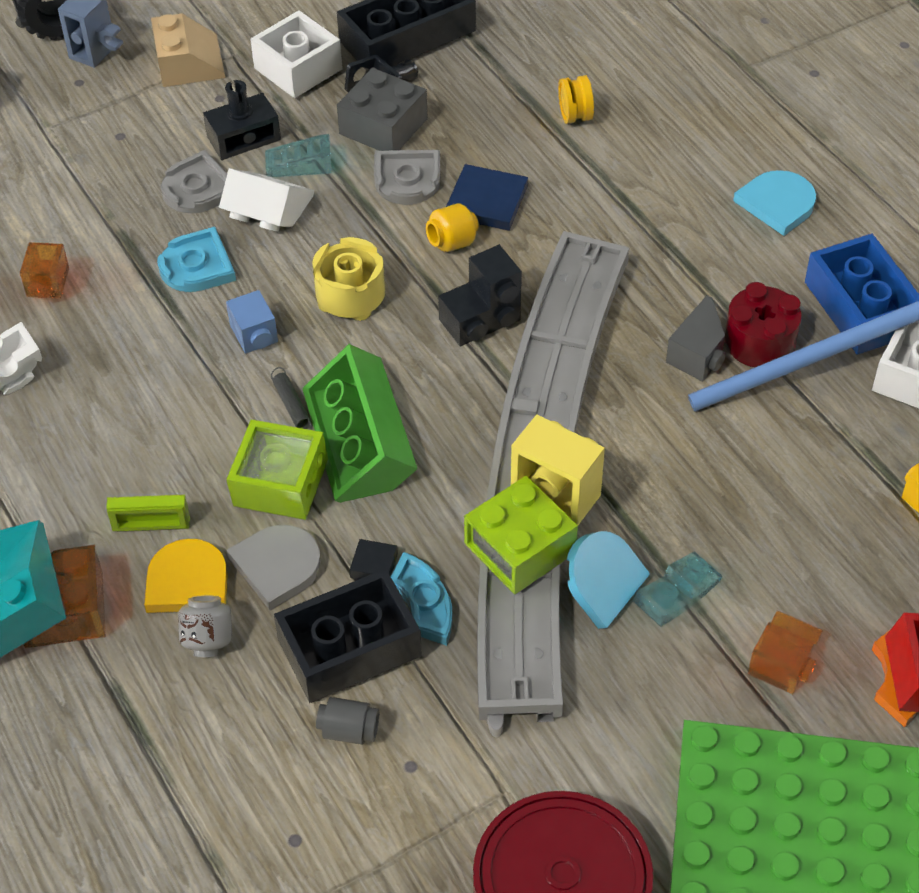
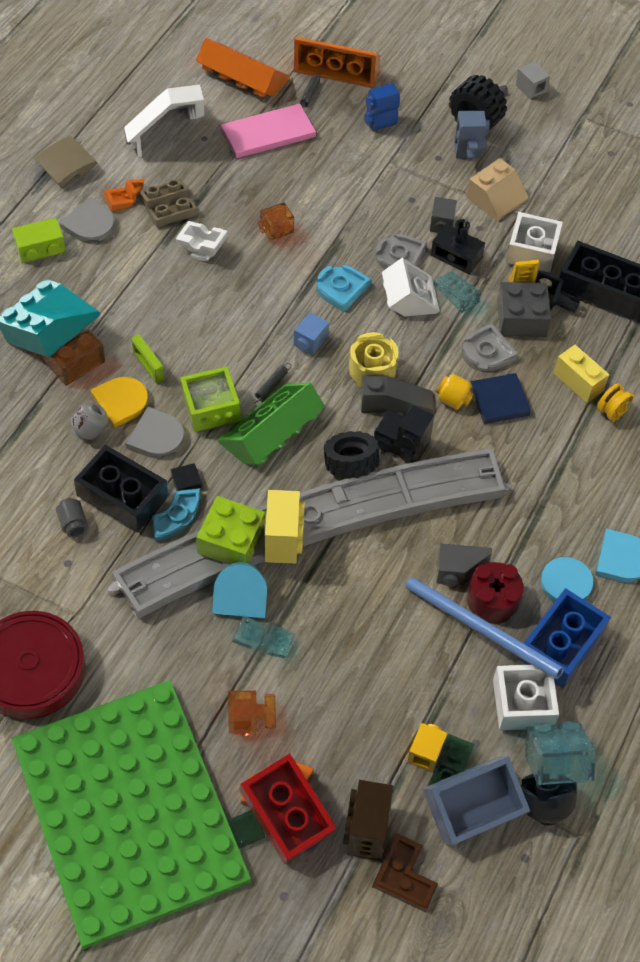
camera: 55 degrees right, 5 degrees up
(179, 114) = (442, 213): none -> dark grey brick
(340, 83) = (524, 271): none -> yellow slope
(409, 291) = (386, 393): none -> dark grey slope
(483, 382) = (351, 466): none -> black tyre
(513, 108) = (581, 373): none -> light yellow brick
(778, 261) = (567, 574): none -> medium azure tile

